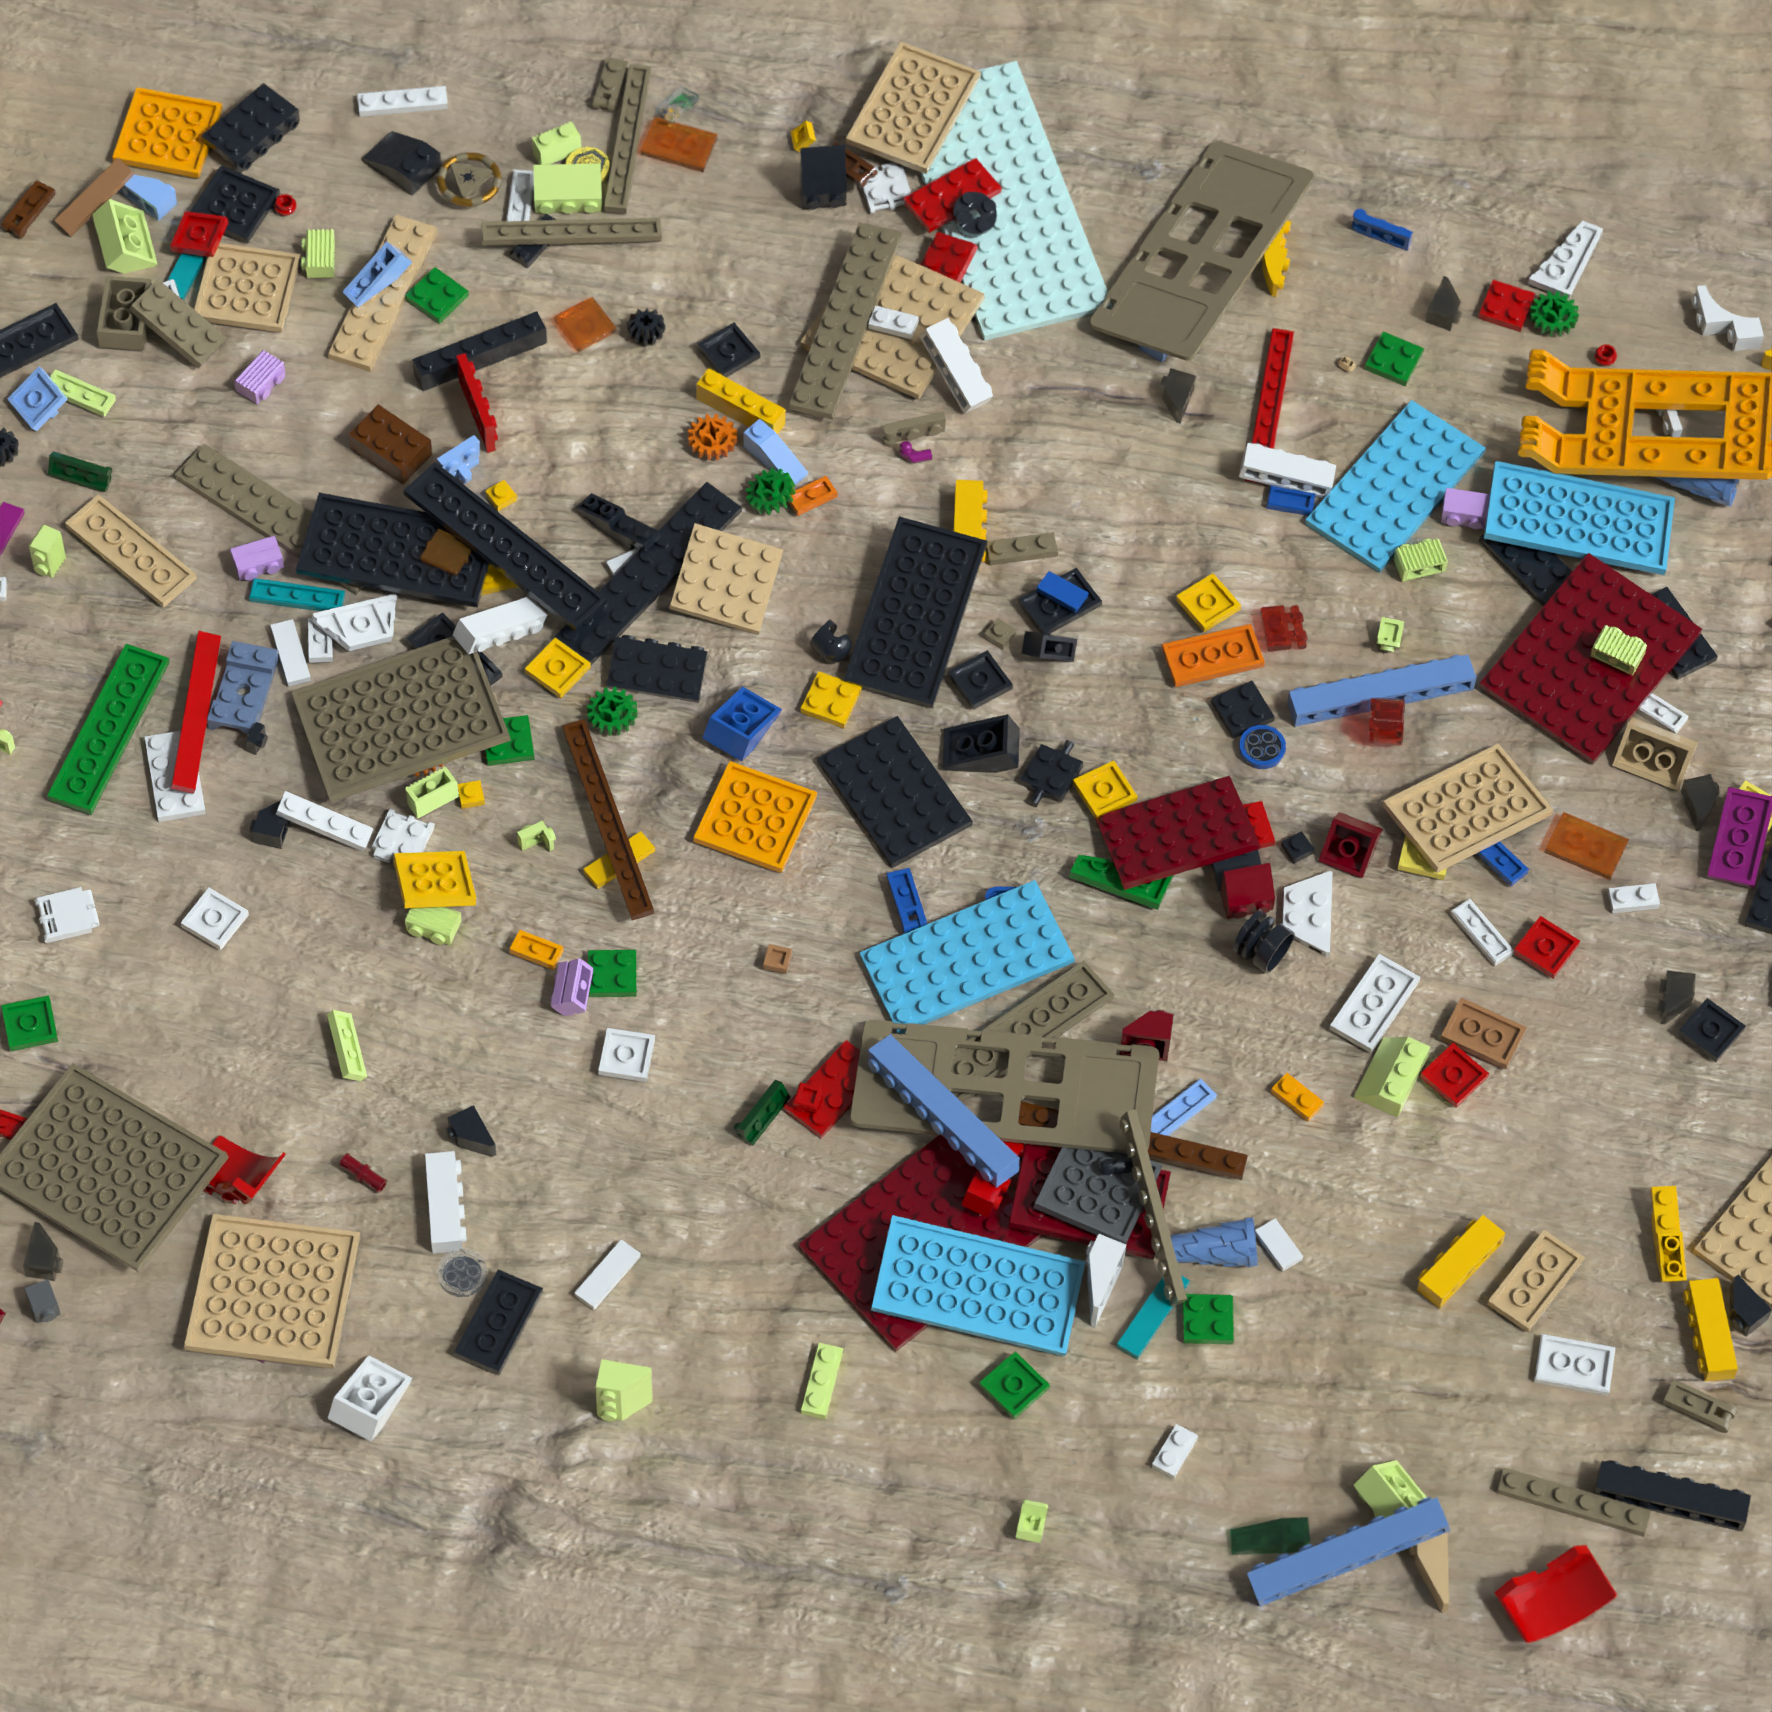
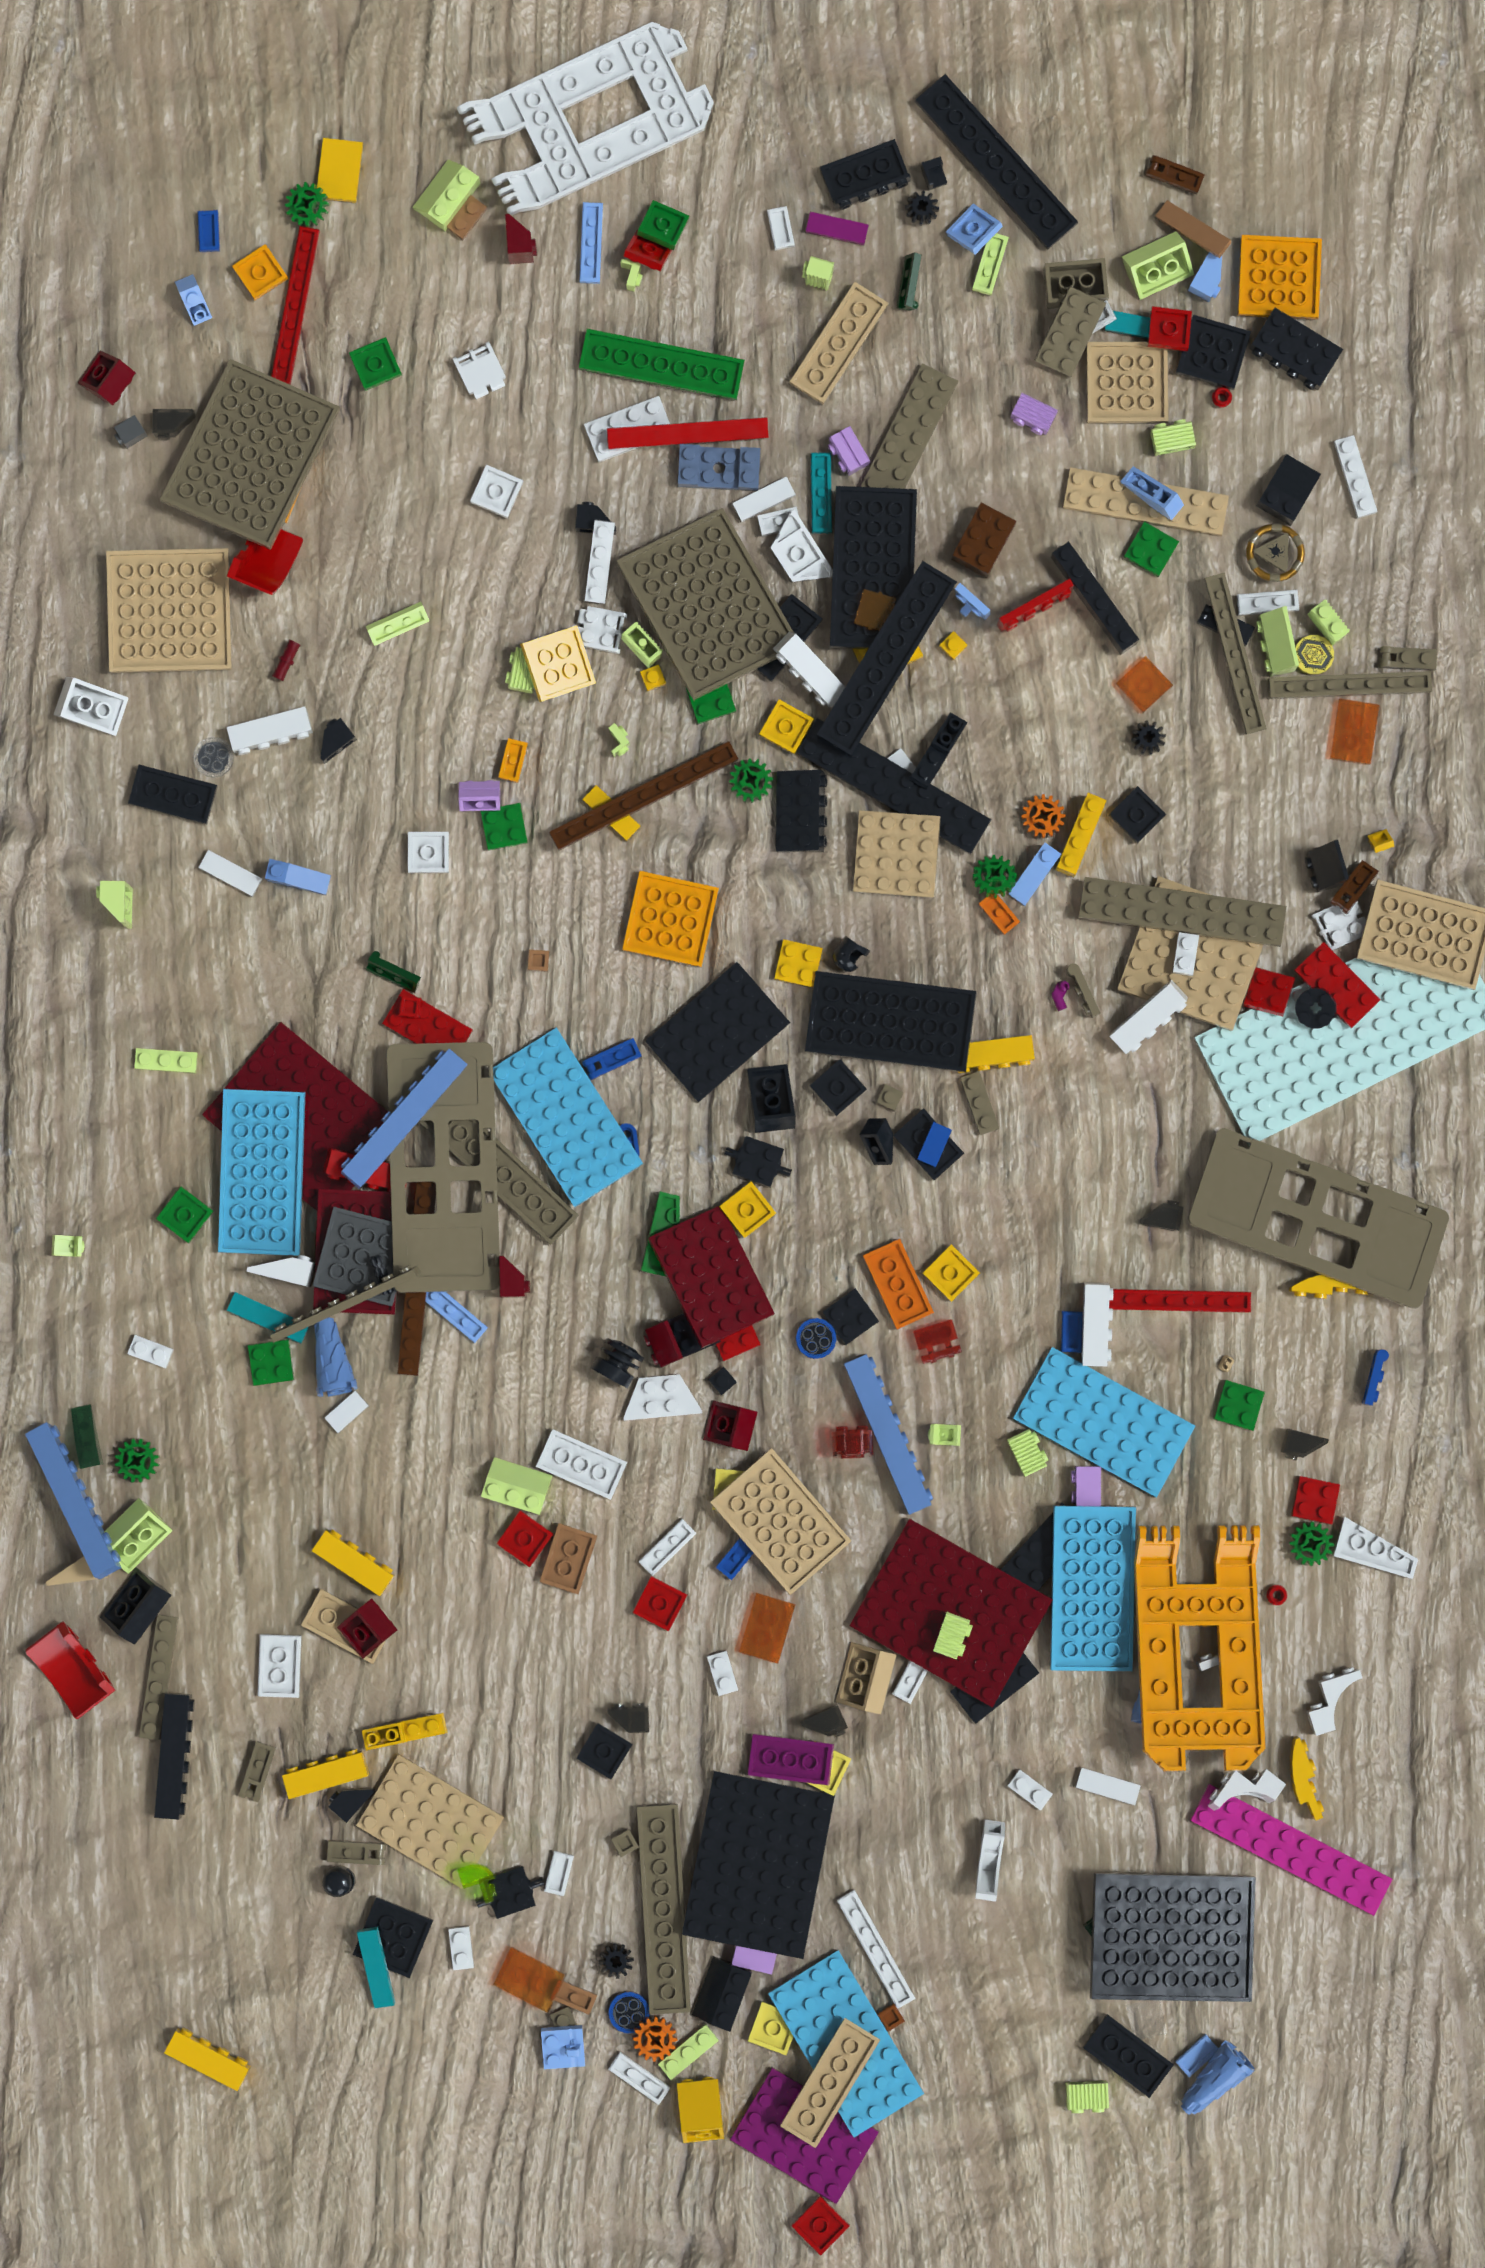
camera: 80 degrees right, 25 degrees up
(257, 738) = (672, 489): black plate -> none
(626, 1202) = (297, 877): none -> medium blue slope
(676, 104) = (1396, 721): clear tile -> none
(741, 723) = (759, 892): blue slope -> none
(1297, 1097) = (484, 1410): light orange plate -> none
(1303, 1492) = (129, 1449): none -> green gear
(1484, 1512) = (135, 1606): none -> black slope
(1543, 1250) = (367, 1628): none -> dark red slope

